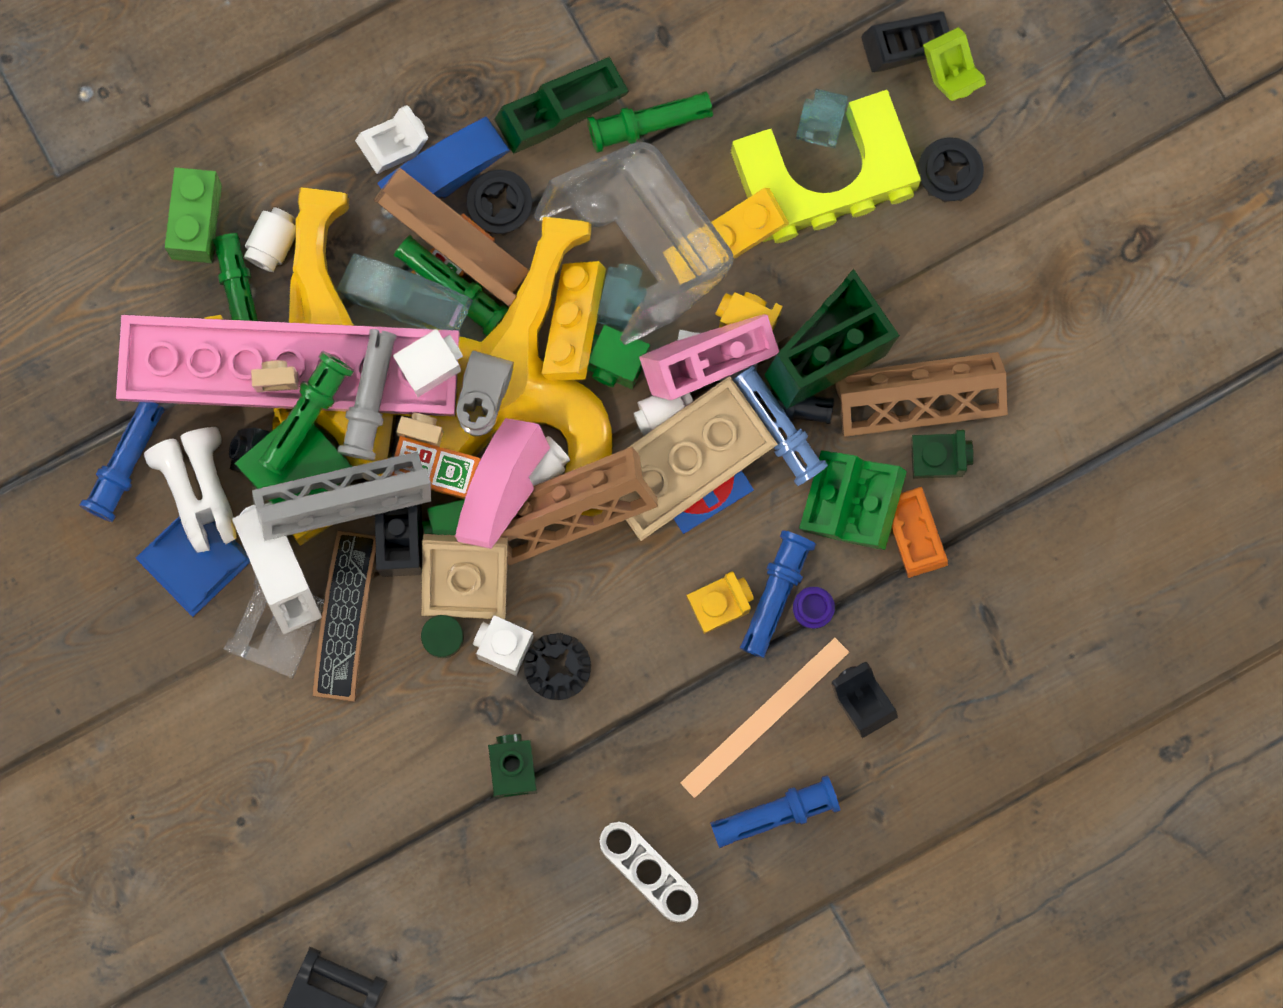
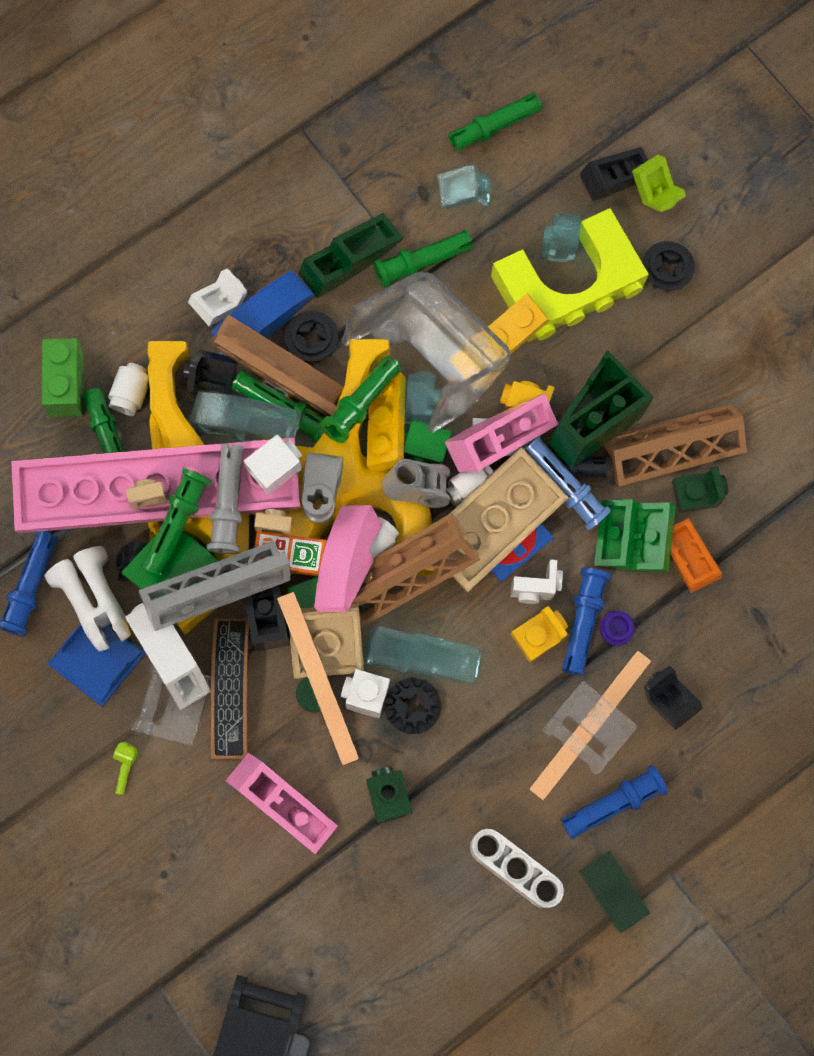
camera: 10 degrees left, 5 degrees down
(214, 677) = (127, 756): none -> lime hand
(370, 230) = (210, 372): none -> black bracket
(387, 758) = (281, 802): none -> bright pink slope
(448, 619) = (318, 678): none -> light nougat sticker
(534, 303) = (353, 408): none -> green pin
(577, 608) = (422, 655): none -> clear light blue slope
(608, 403) = (423, 485): none -> light grey piece
(714, 36) = (464, 186): none -> clear light blue bracket
(717, 548) = (532, 589): none -> white bracket
(759, 915) = (614, 892): none -> clear green plate
(772, 711) = (598, 719): none -> clear plate

